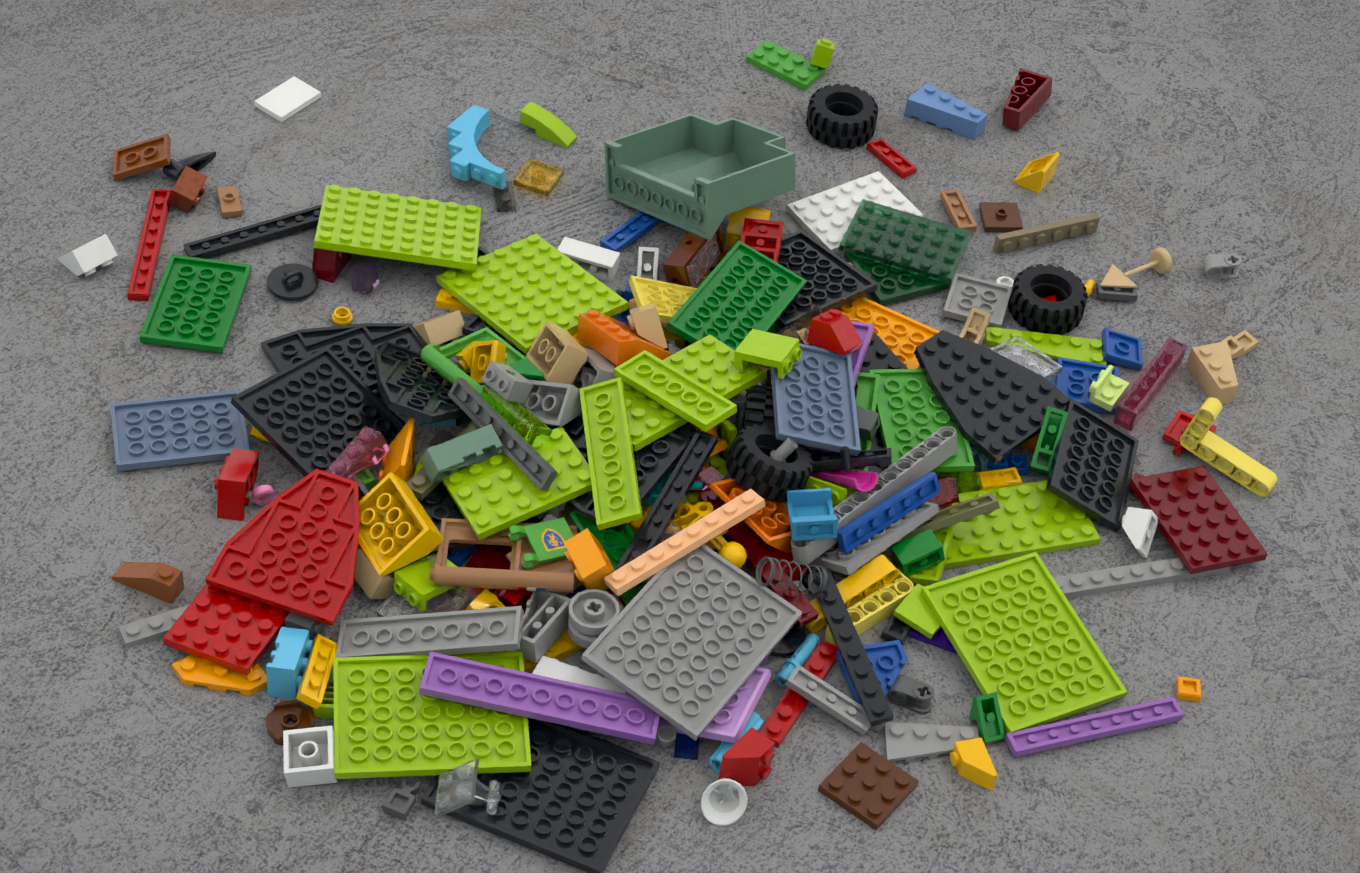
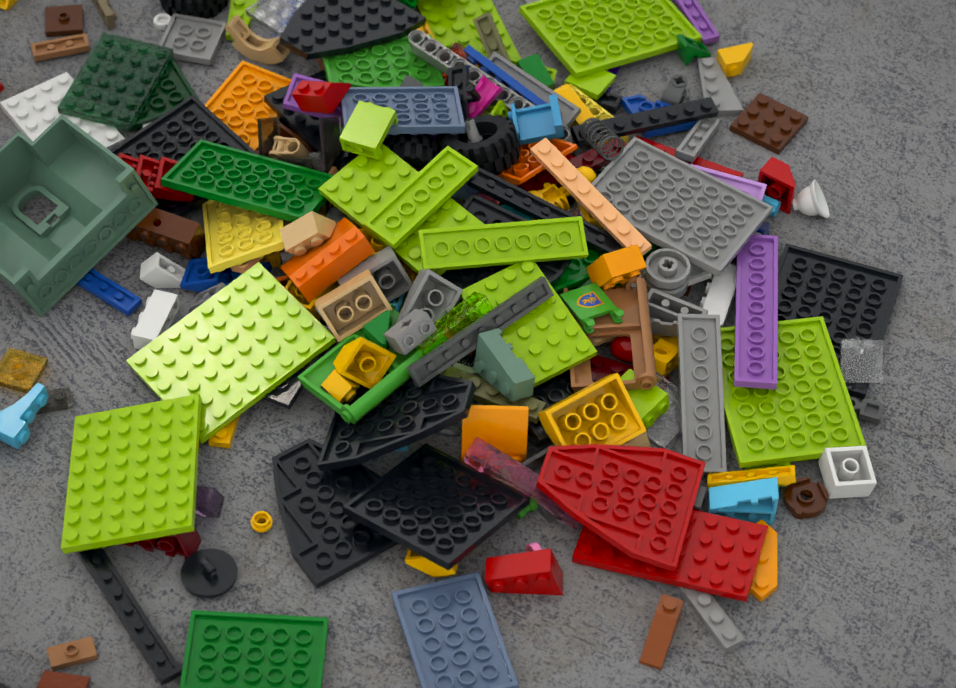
camera: 90 degrees left, 5 degrees up
(441, 328) = (274, 433): tan slope -> none

